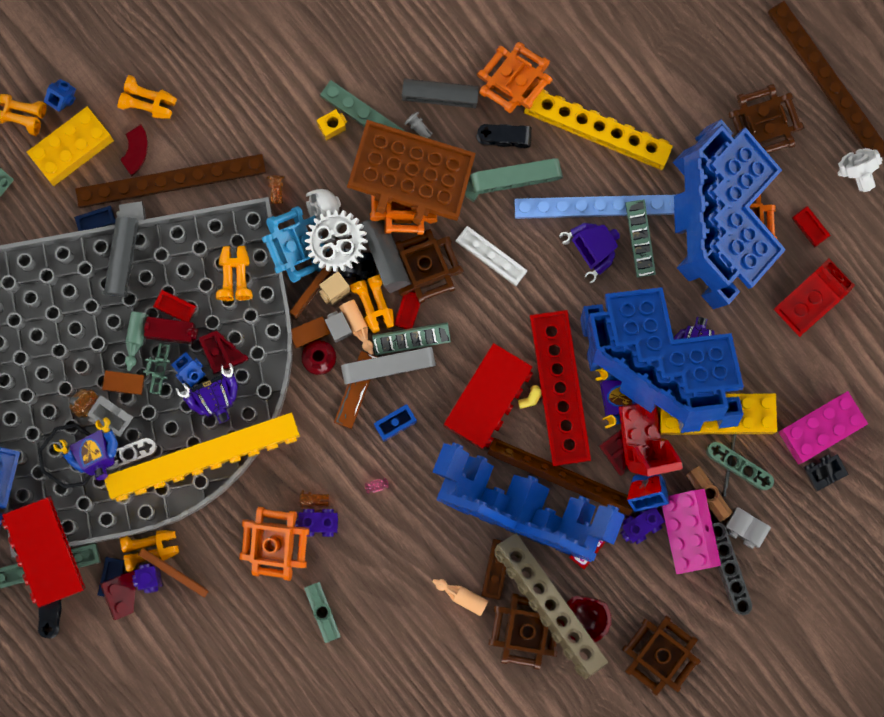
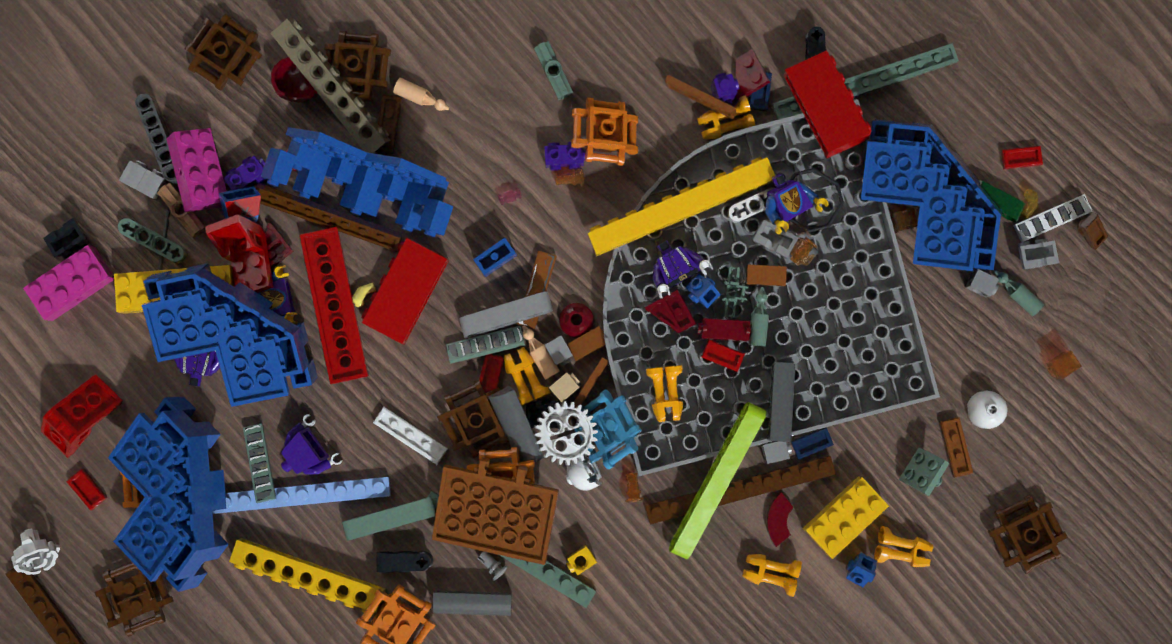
camera: 175 degrees left, 5 degrees up
(191, 187) = (717, 480): none -> lime beam

